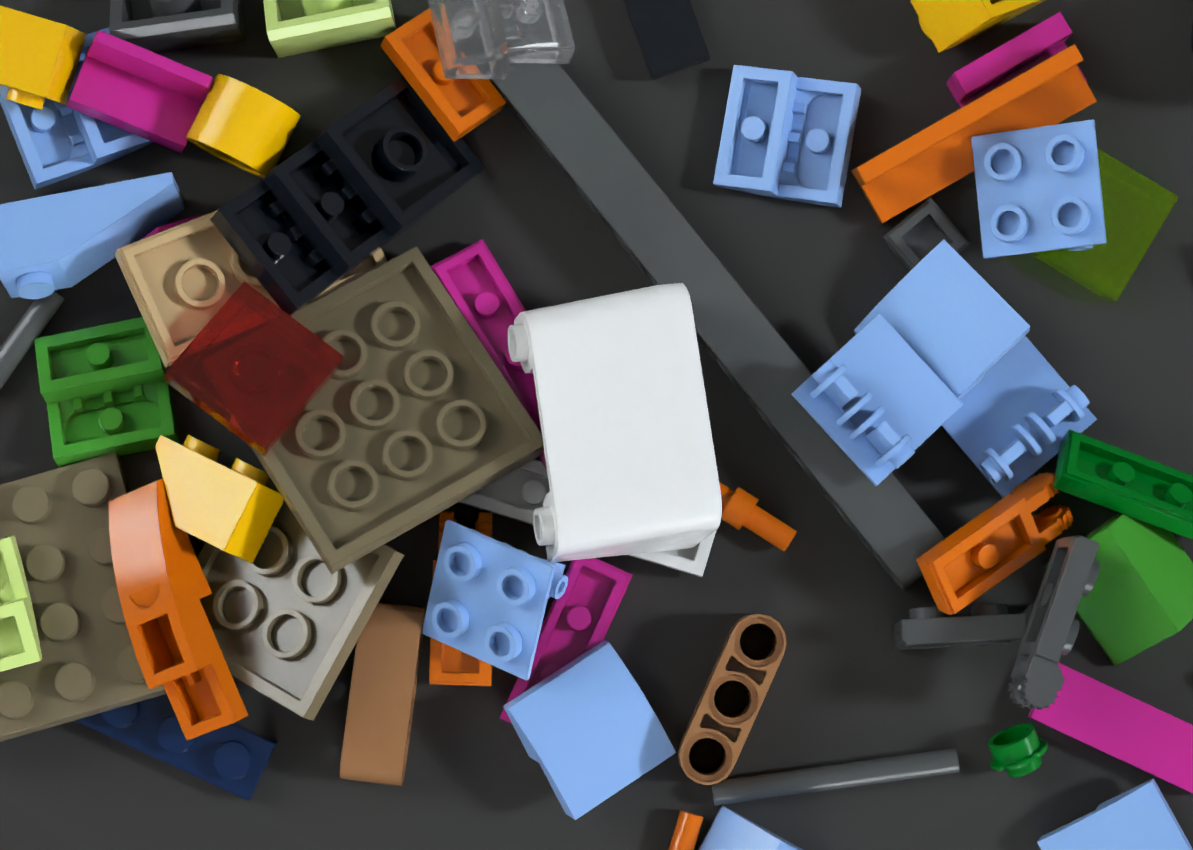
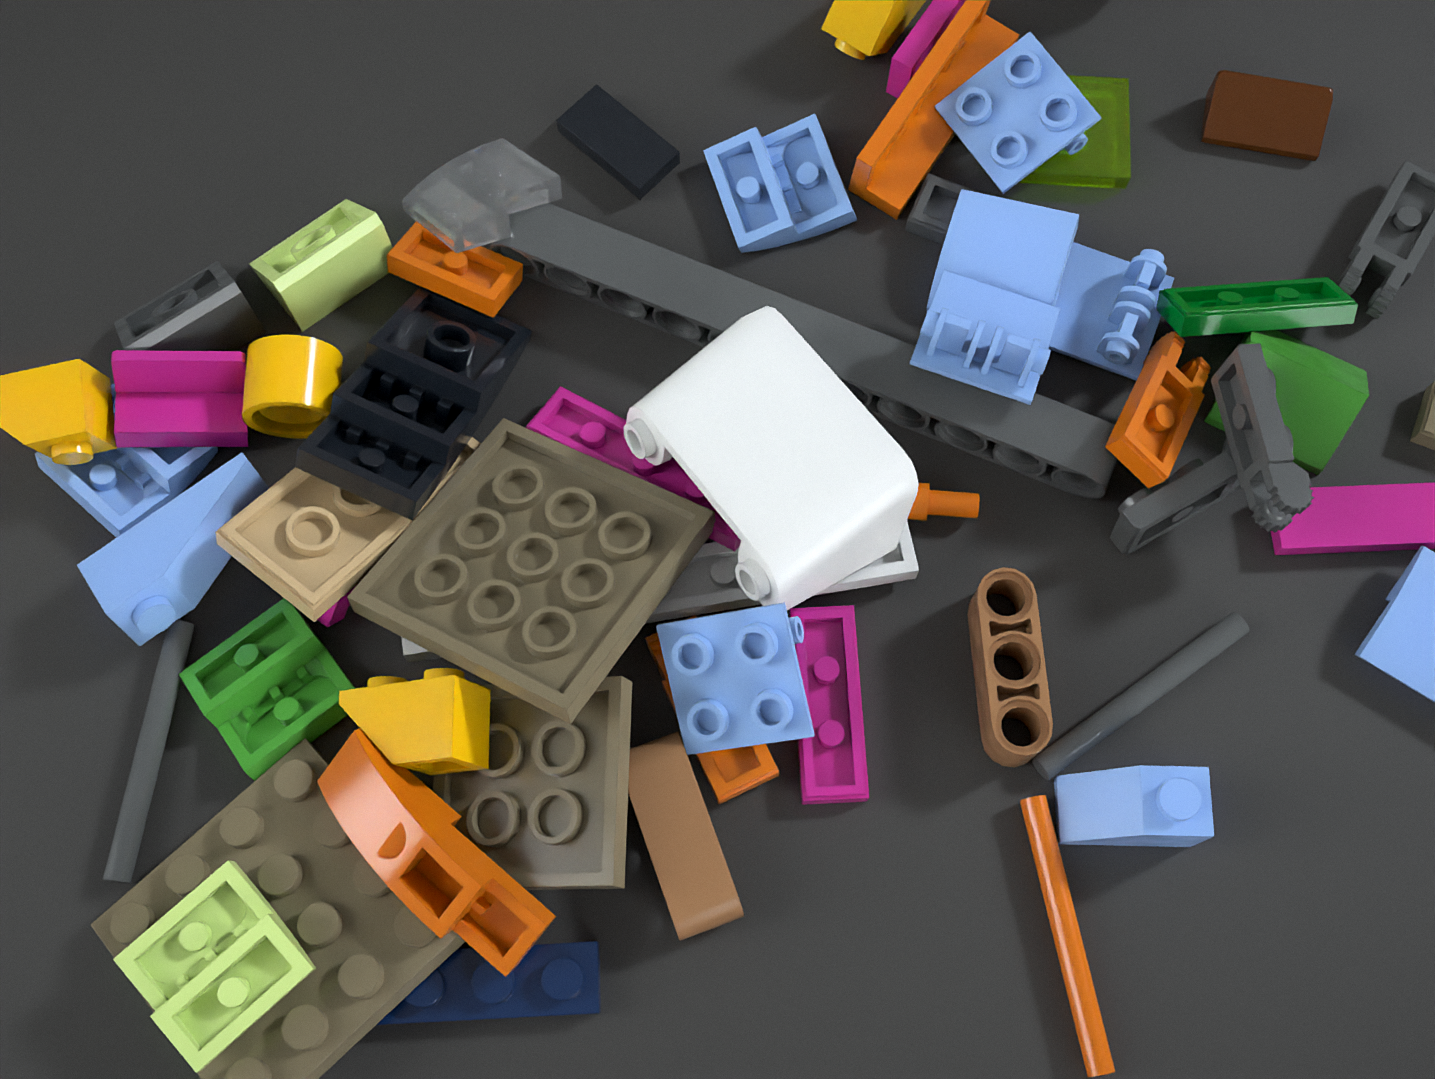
camera: 25 degrees left, 15 degrees down
(253, 368) = (399, 574): clear red tile -> none
(589, 729) = (895, 764): light blue slope -> none
(1017, 750) = (1288, 583): green plate -> none

